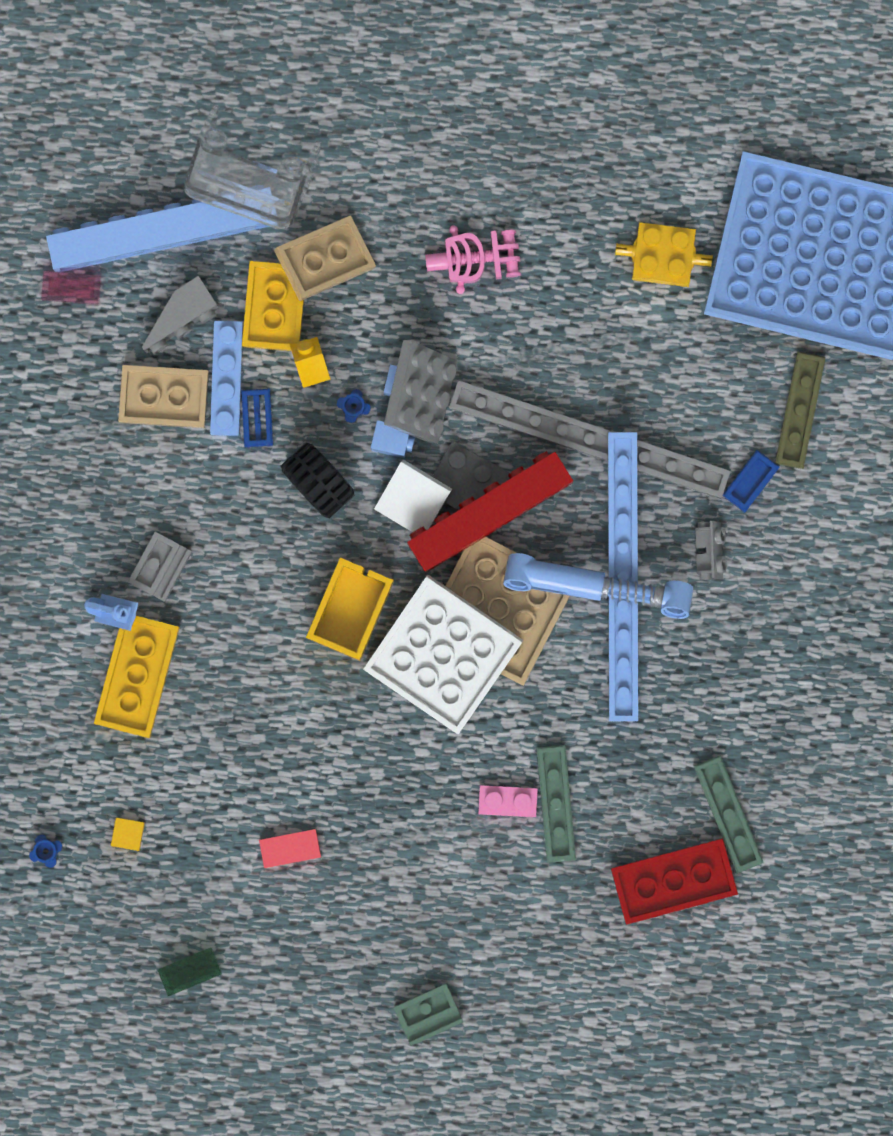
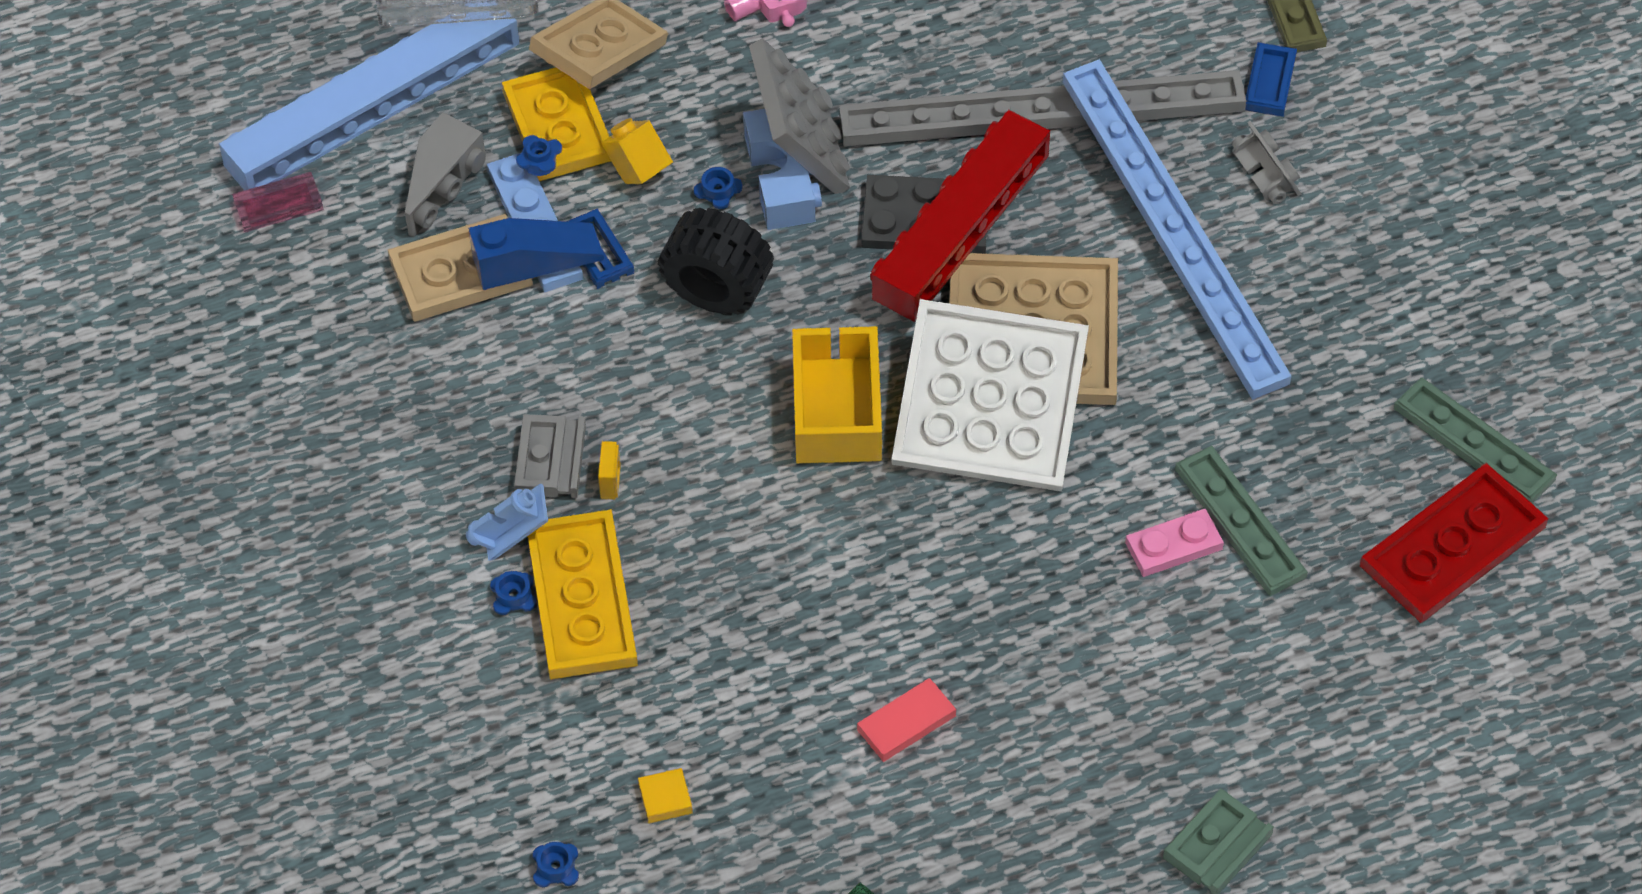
camera: 30 degrees left, 30 degrees down
(93, 647) = (509, 582): none -> blue plate
(190, 596) = (609, 470): none -> yellow tile
(211, 414) = (530, 248): none -> blue slope
(245, 346) = (537, 163): none -> blue plate
(412, 497) = (848, 245): white tile -> none
(526, 573) = (1047, 258): light blue piece -> none

